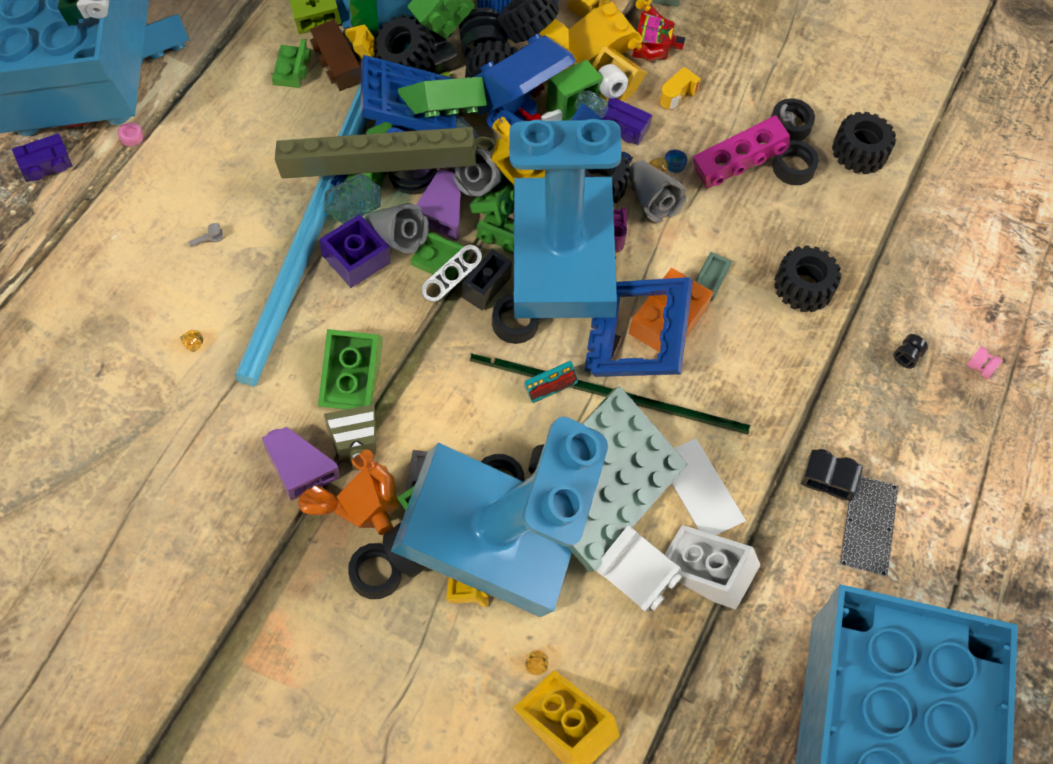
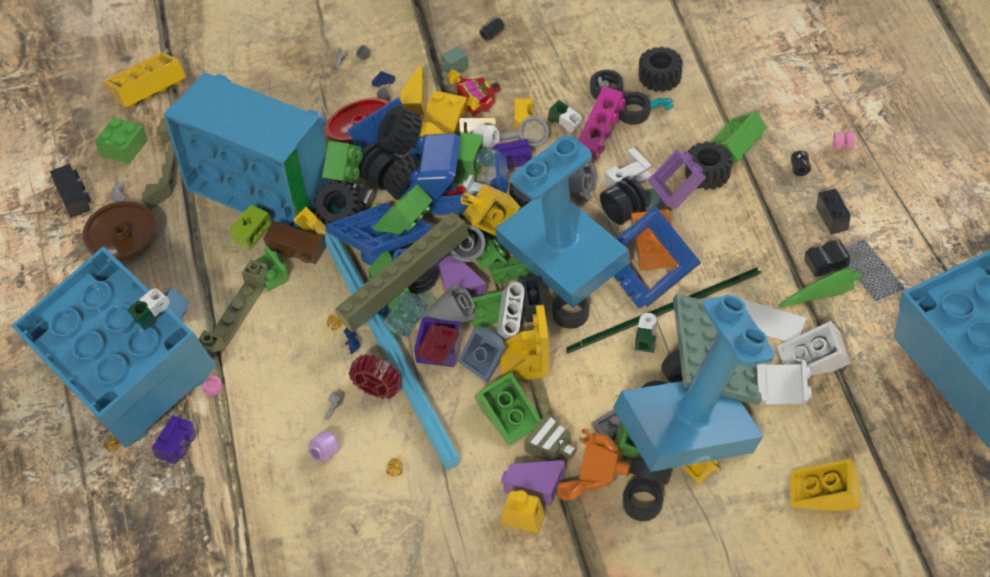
camera: 30 degrees left, 10 degrees down
(153, 268) = (323, 446): none -> lavender head
(219, 83) = (228, 325): none -> olive slope
(246, 481) = (523, 512): none -> yellow torso
(261, 237) = (375, 376): none -> dark red gear
(287, 190) = (352, 341): none -> clear blue piece
(340, 251) = (438, 344): none -> dark red plate
(387, 292) = (482, 352): none -> sand blue slope
(424, 327) = (528, 351): none -> yellow bracket
(537, 662) = (779, 476): clear yellow hinge -> none
(551, 382) = (629, 327): slope -> none
(560, 401) = (646, 329): none -> dark green leg
(667, 110) = (531, 128): none -> piece
(683, 248) = (623, 199): none -> black wheel
(716, 120) = (564, 116): none -> leg
(718, 228) = (637, 169): none -> white piece
(740, 254) = (667, 169): none -> medium lavender window
(799, 505) = (831, 285): none -> bright green piece
(831, 177) = (666, 102): none -> teal arm
(874, 272) = (740, 134): none -> bright green slope
(891, 429) = (833, 211): none -> black brick

